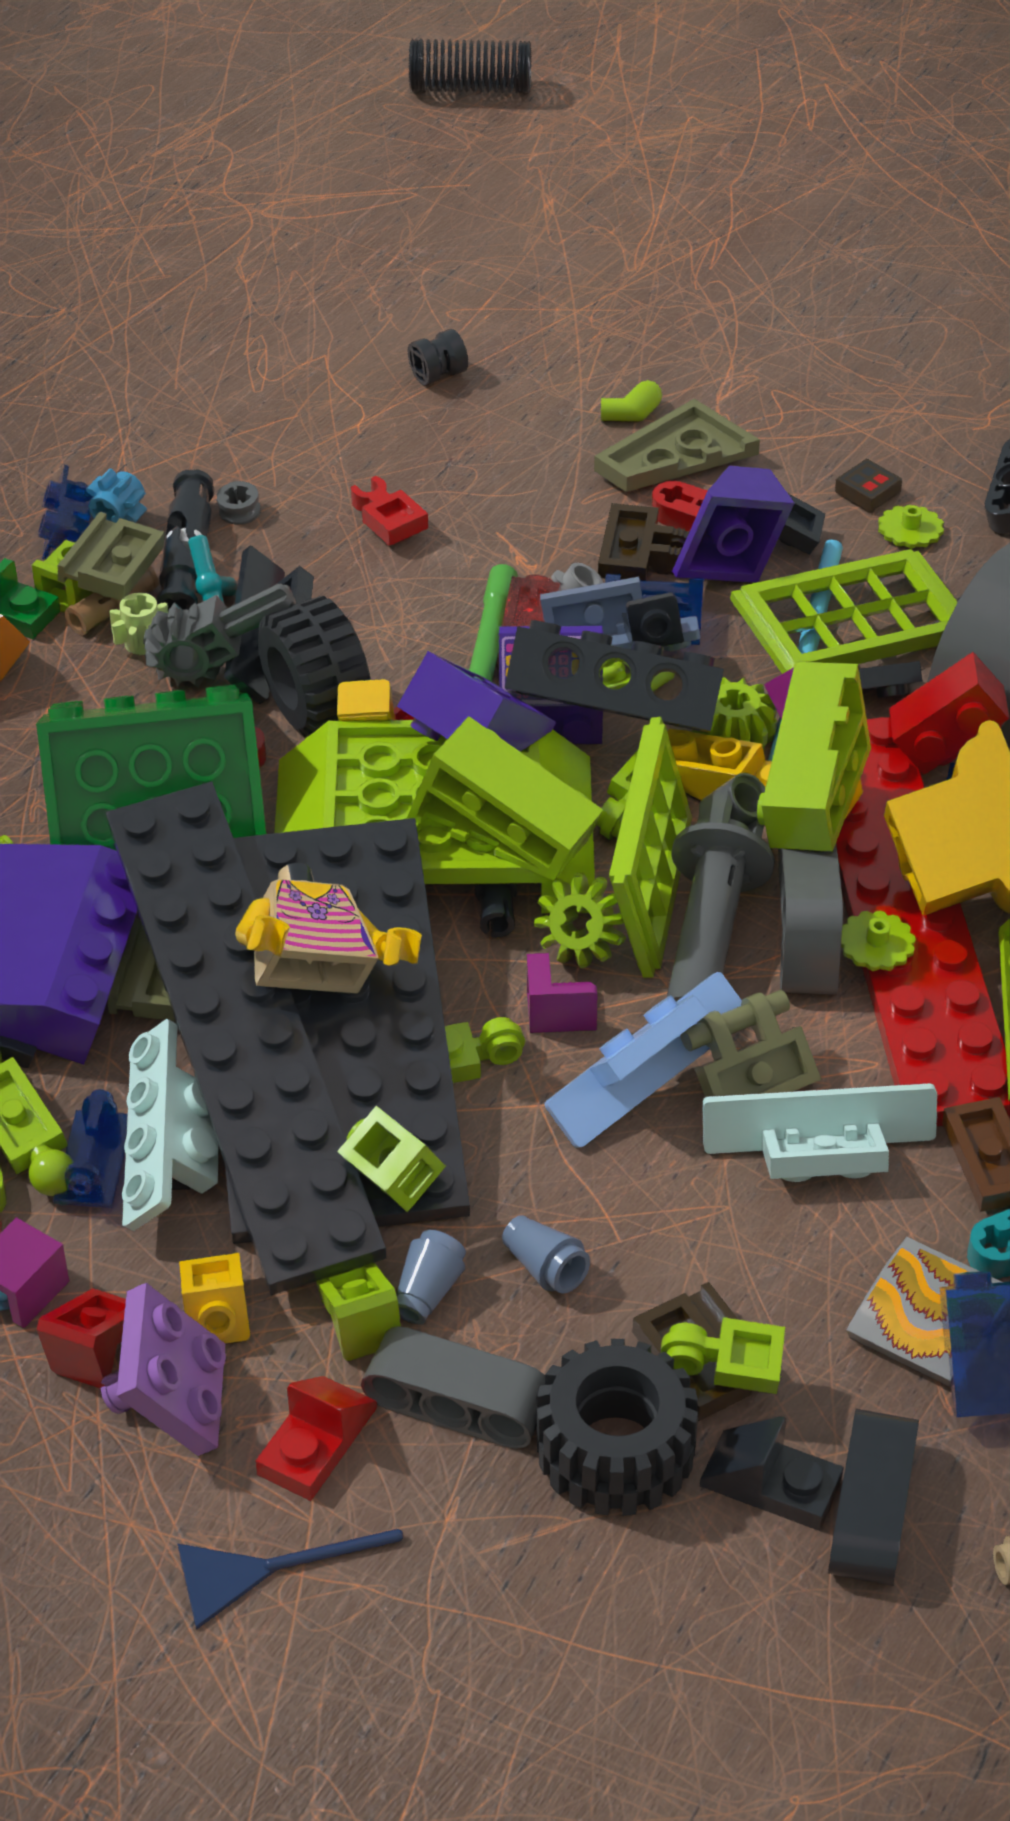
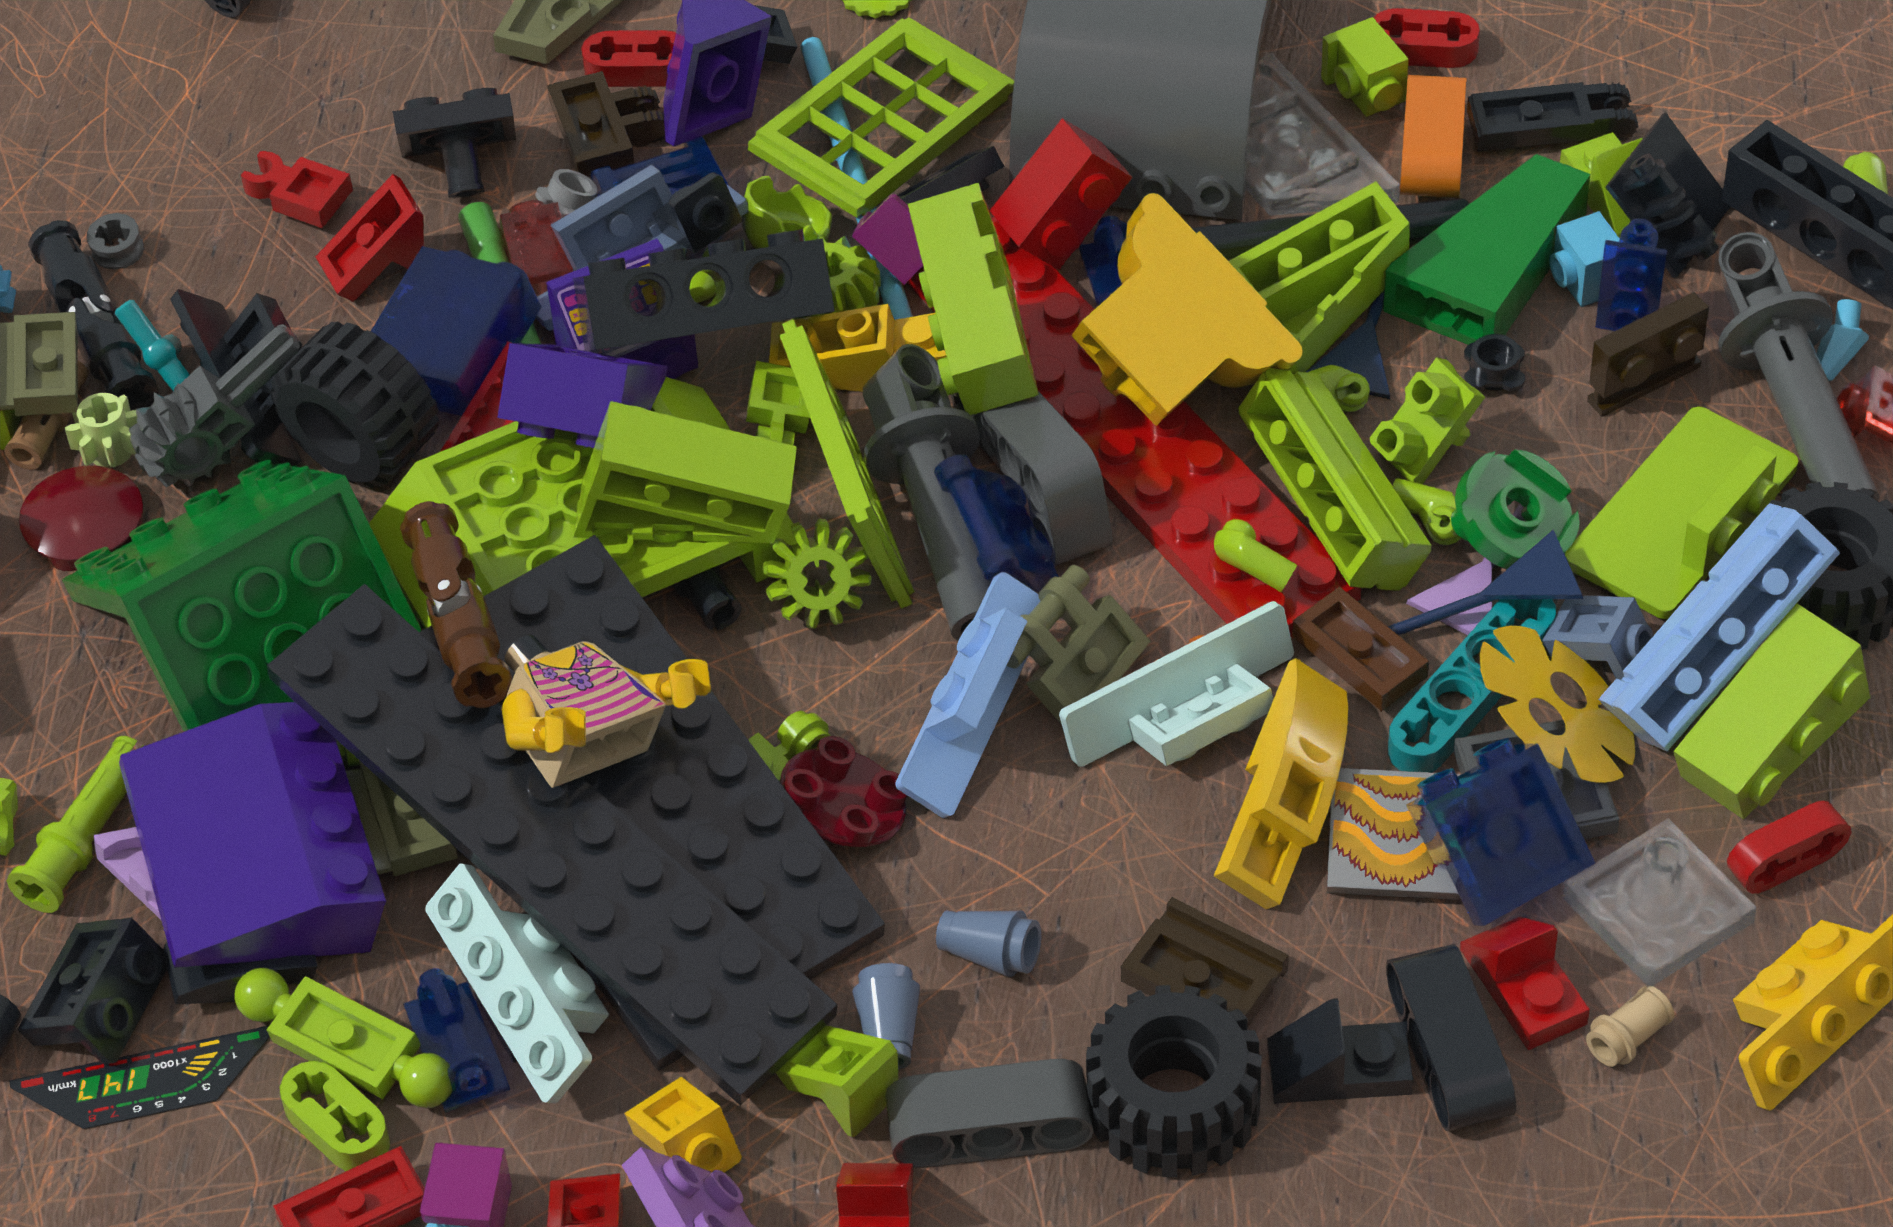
camera: 25 degrees left, 5 degrees up
(88, 673) = (80, 513): none -> dark red dish
(268, 823) = (460, 610): none -> reddish brown piece
(365, 701) = (444, 424): yellow slope -> none
(391, 1158) = (774, 887): lime brick -> none
(416, 560) = (380, 232): none -> red slope
(424, 620) = (456, 319): none -> clear blue brick
(501, 1094) = (845, 794): none -> dark red dish
(519, 507) = (456, 132): none -> black plate
(558, 1005) = (836, 673): magenta panel -> none
(735, 656) = (782, 212): none -> lime hair
(743, 935) = (997, 522): none -> clear blue plate
(745, 1354) = (1257, 951): lime plate -> none
(858, 1233) = (1291, 787): none -> yellow slope
(877, 940) = (1131, 471): lime piece -> none
(930, 1033) = (1239, 548): none -> lime arm
(972, 1481) = (1525, 979): none -> red slope

